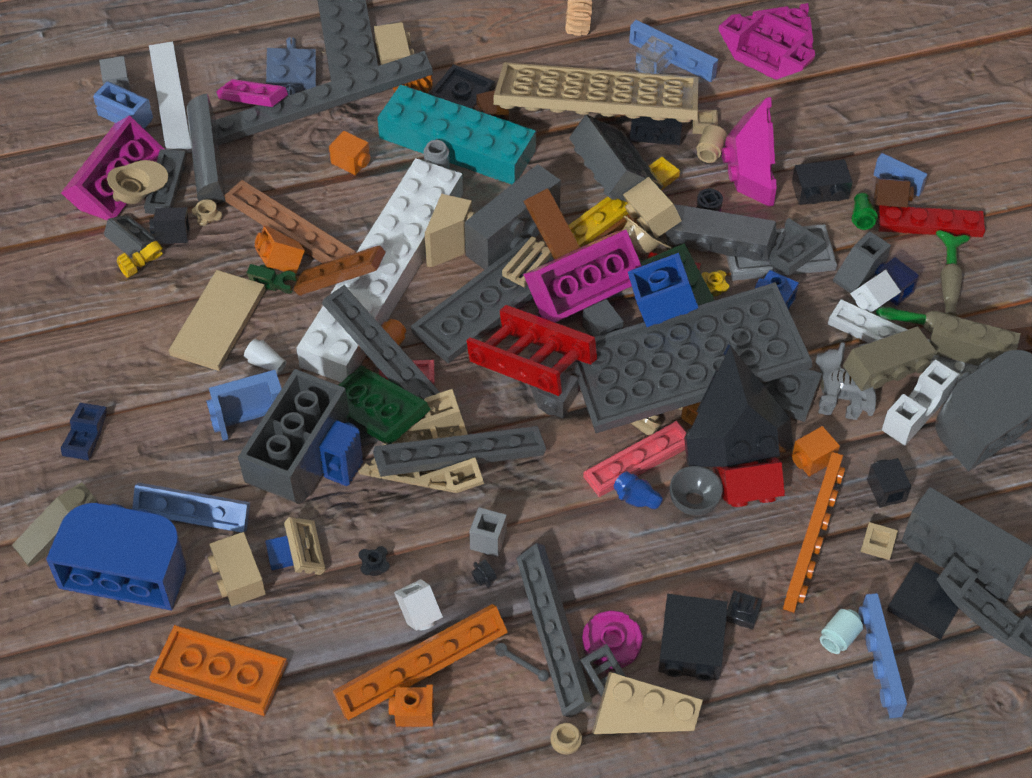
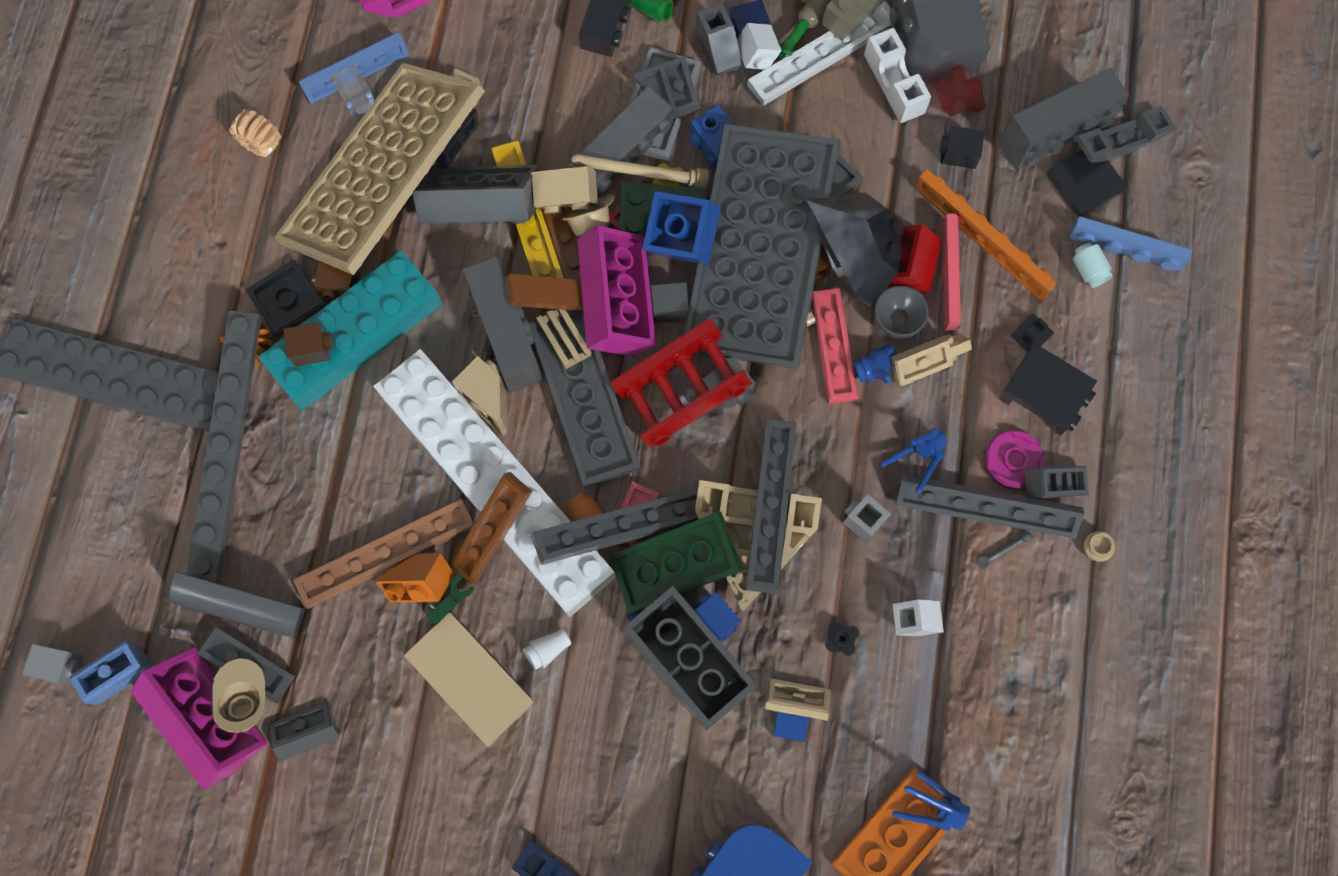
camera: 65 degrees left, 20 degrees up
(129, 265) = (344, 735): yellow piece -> none
(170, 97) = (116, 613): white tile -> none
(170, 225) = (318, 682): black brick -> none
(192, 507) = (702, 797): medium blue plate -> none
(206, 212) = (321, 641): tan plate -> none
(237, 569) = (801, 777): tan brick -> none
(242, 400) = (609, 660): medium blue panel -> none
(252, 92) = (172, 519): dark pink tile -> none
(255, 694) = (949, 810): none -> blue plant
(291, 67) = (152, 463): sand blue plate -> none
(349, 153) = (316, 449): orange brick -> none
(392, 42) = (188, 341): tan brick -> none
(415, 715) = (1005, 673): orange brick -> none
(420, 661) = (973, 642): orange plate -> none
(422, 100) = (308, 344): none -> reddish brown brick
(437, 153) = (377, 364): light grey brick -> none
(483, 573) = (901, 542): black plate -> none
(585, 559) = (927, 446): none -> blue plant
(643, 707) = (1109, 467): tan wedge -> none
(667, 530) = (928, 358): none -> tan hinge
(710, 200) = (576, 135): black wheel -> none
(711, 143) = (498, 94): tan brick -> none
(718, 285) = (694, 178): none -> tan piece
(751, 154) = (539, 60): dark pink wedge -> none
(758, 517) = (950, 273): none -> coral tile
(814, 451) = (903, 189): orange brick -> none
(838, 384) = (849, 119): light grey animal -> none
(879, 541) = (1016, 187): tan plate -> none
(889, 359) = (850, 74): dark tan brick -> none
(940, 458) = (960, 92): none -> clear red brick

